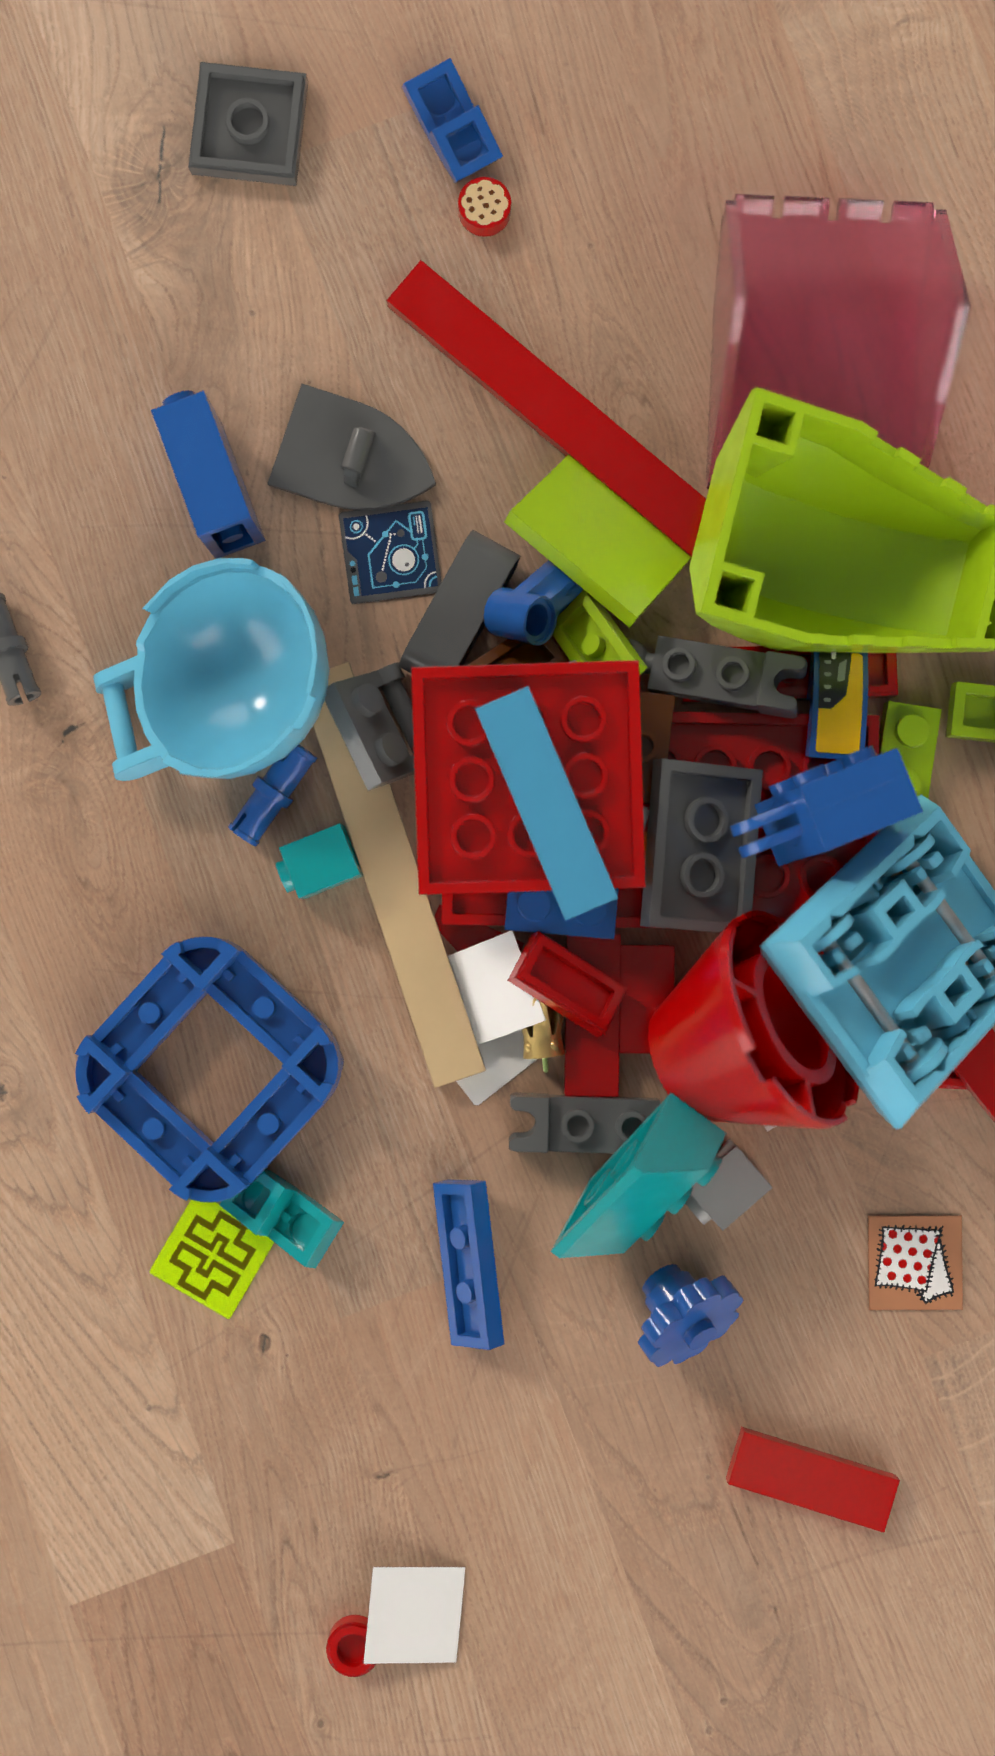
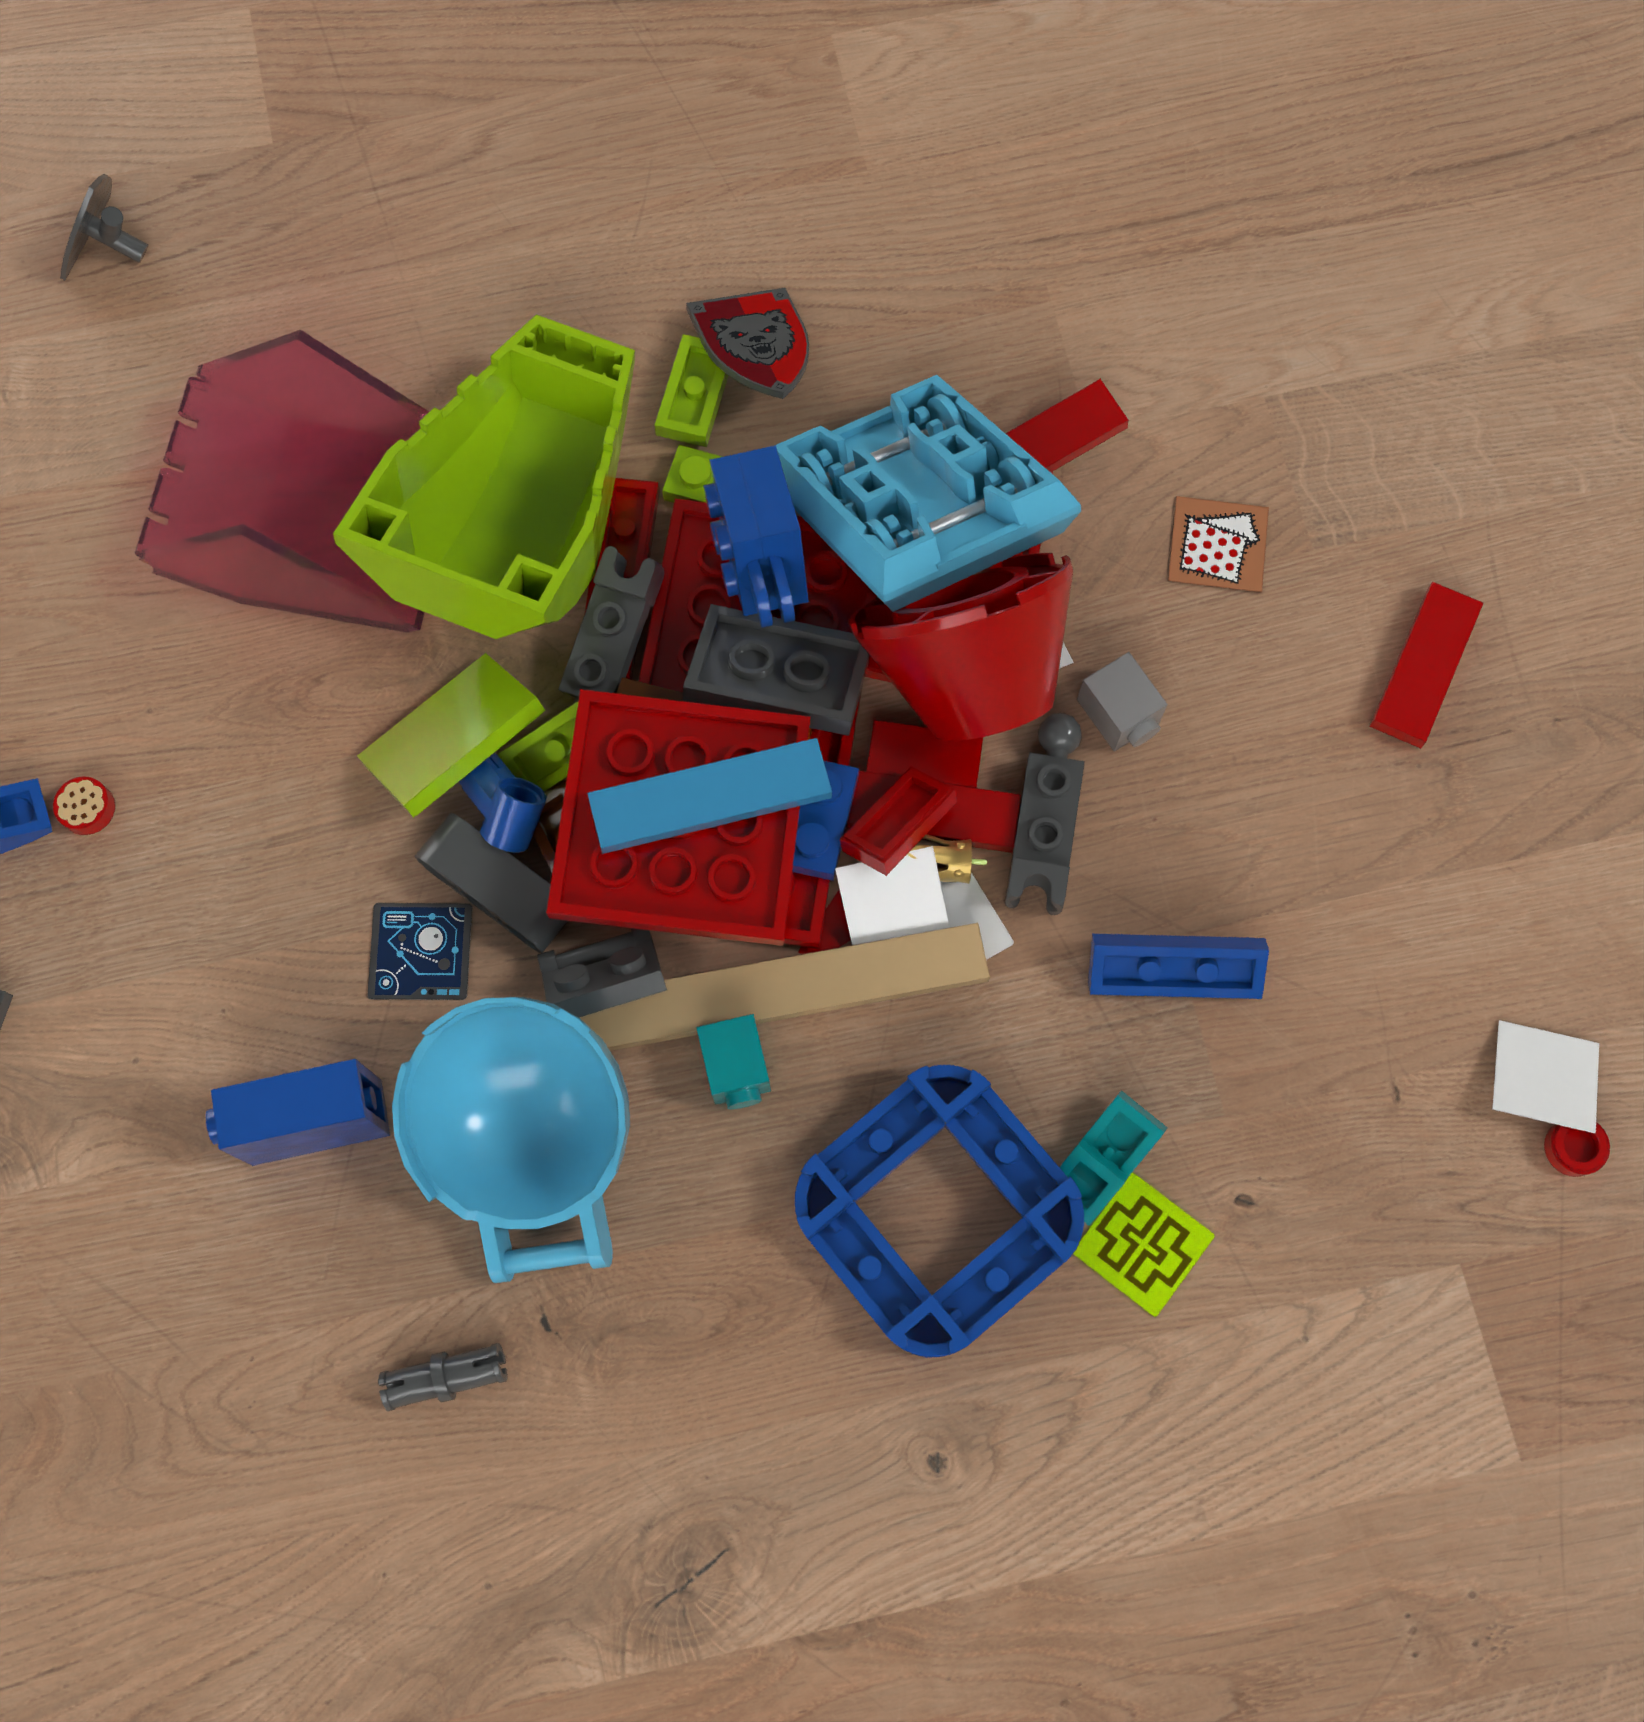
camera: 85 degrees left, 15 degrees down
(271, 795) = (657, 1108): blue pin -> none
(348, 455) = (309, 979): dark grey shield -> none
(548, 403) = (303, 767): red tile -> none
(643, 1182) = (1107, 767): teal slope -> none
(685, 1314) = (1247, 754): blue plant -> none
(837, 704) = (658, 530): slope -> none

